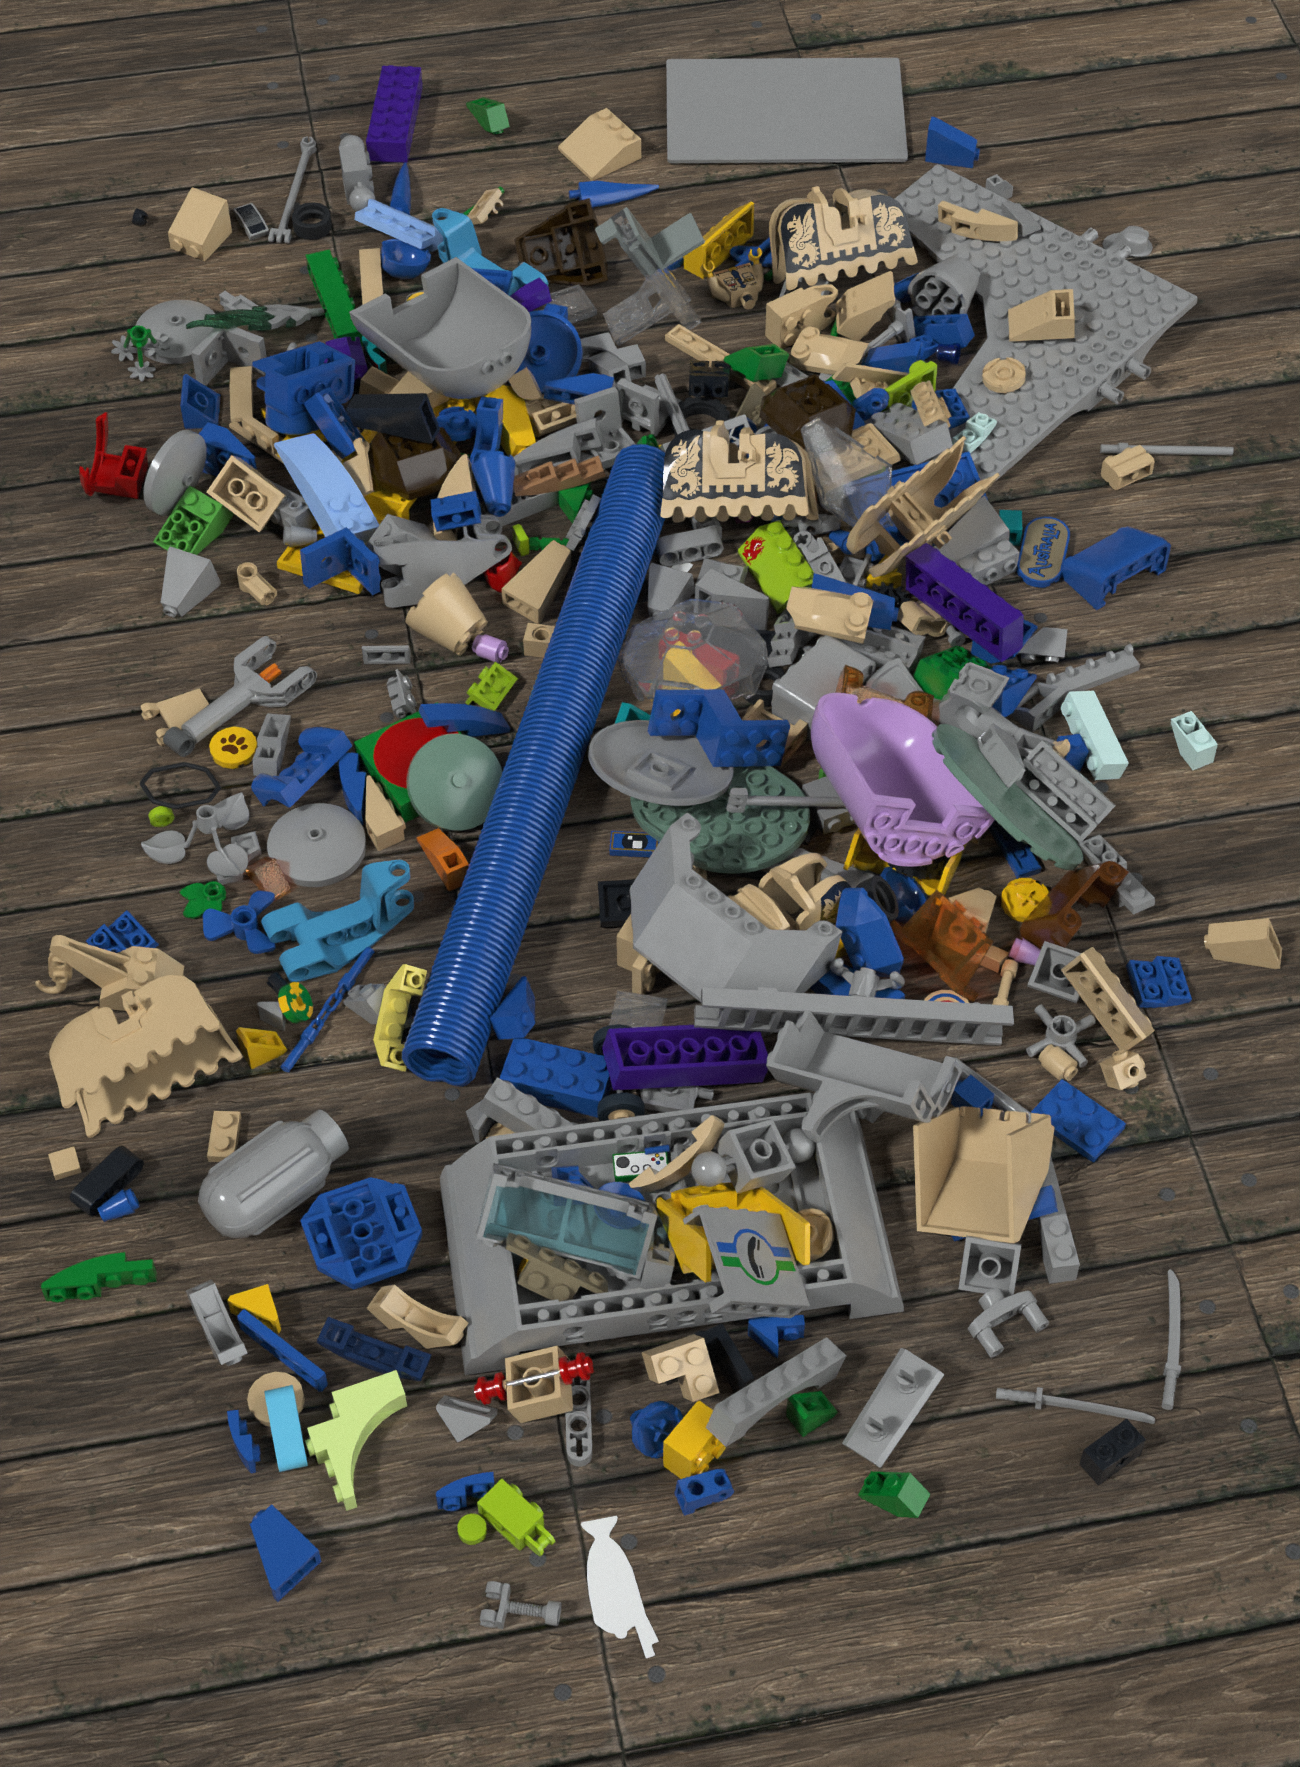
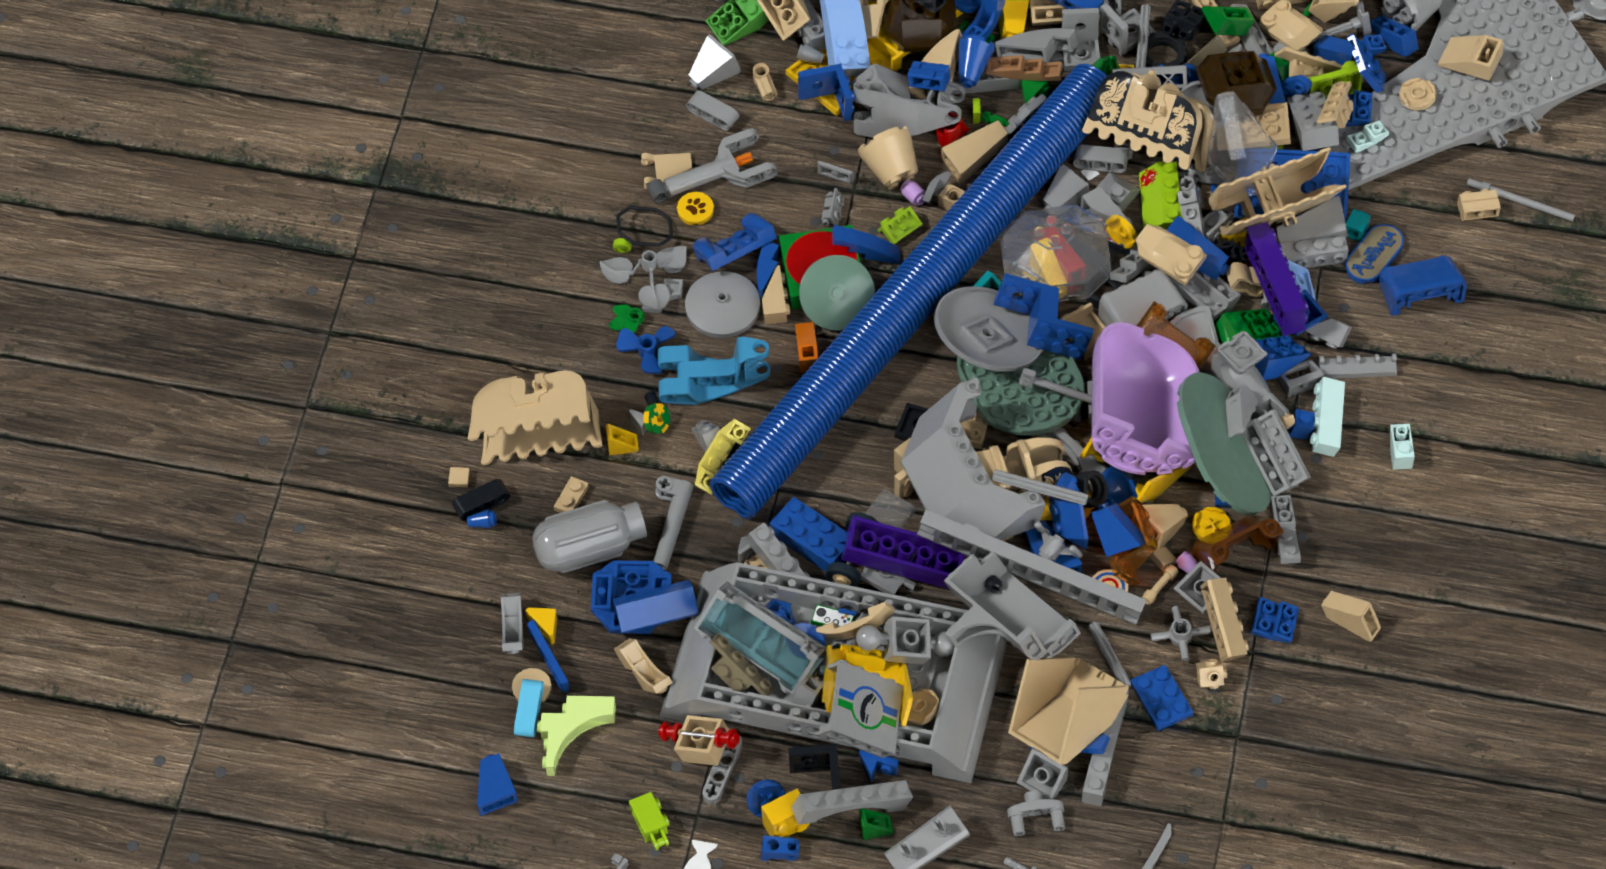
camera: 25 degrees right, 5 degrees up
(88, 1277) = (444, 561): green slope -> none
(110, 970) = (543, 355): tan slope -> none
(121, 935) = (558, 331): blue slope -> none
(206, 633) = (712, 110): none -> light grey beam
(246, 1449) = (498, 705): blue slope -> none
(268, 877) = (678, 318): clear orange slope -> none
(271, 744) = (722, 216): light grey slope -> none
(310, 1033) = (658, 444): blue piece -> none
(364, 1084) = (679, 494): none -> light grey axle
(372, 1353) = (605, 679): dark blue slope -> none
(403, 1232) = (655, 606): none -> slope
(455, 1494) = (619, 790): blue slope -> none
(464, 1416) = (647, 743): light grey slope -> none
(472, 1529) = (620, 817): lime tile -> none
(515, 1013) = (803, 479): blue slope -> none
(517, 630) = (936, 185): none -> light grey slope
(632, 844) = (943, 380): tile -> none
(687, 1361) = (799, 758): tan brick -> none
(760, 608) = (1121, 231): none -> yellow tile
(818, 1052) = (993, 584): none -> black hinge
(828, 913) = (1040, 487): none -> light grey axle
(934, 937) = (1116, 529): none -> blue slope
(942, 360) = (1367, 66): none -> blue wing
(949, 353) = (1390, 57): clear blue piece -> none
(972, 1094) = (1093, 653): blue brick -> none
(1058, 1063) = (1168, 652): tan brick -> none

